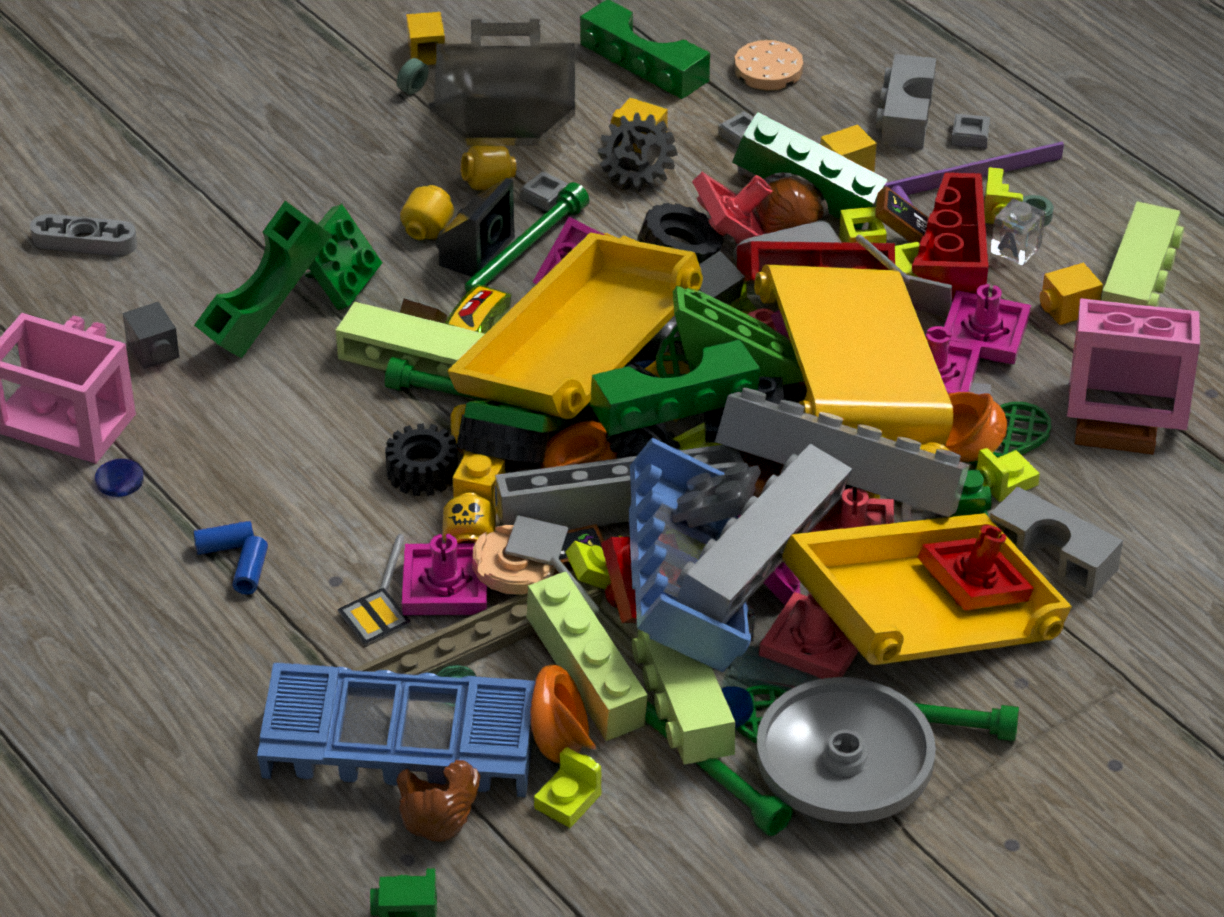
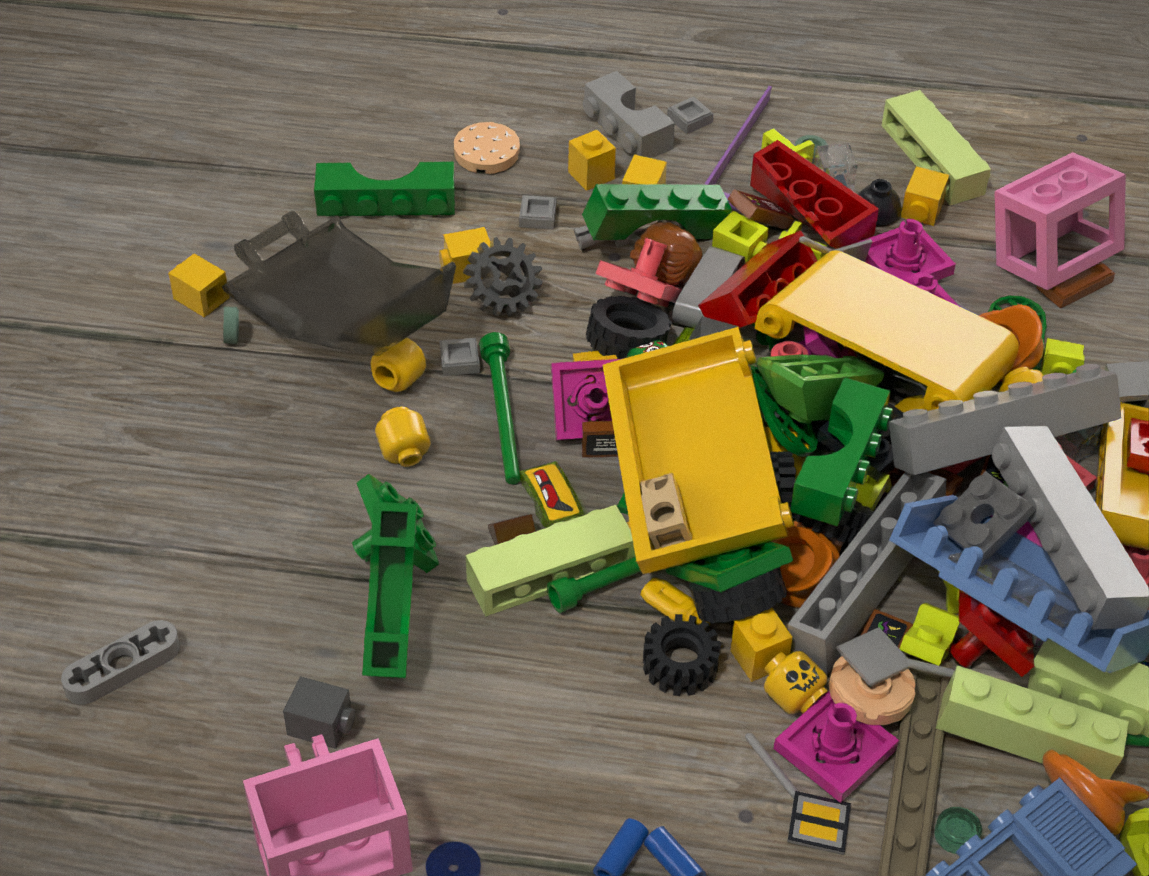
camera: 45 degrees left, 5 degrees up
(479, 230) = (469, 422): black slope -> none
(509, 350) = (664, 511): none -> tan leg
(827, 110) = (591, 160): none -> yellow brick
(1024, 277) = (885, 198): none -> black brick

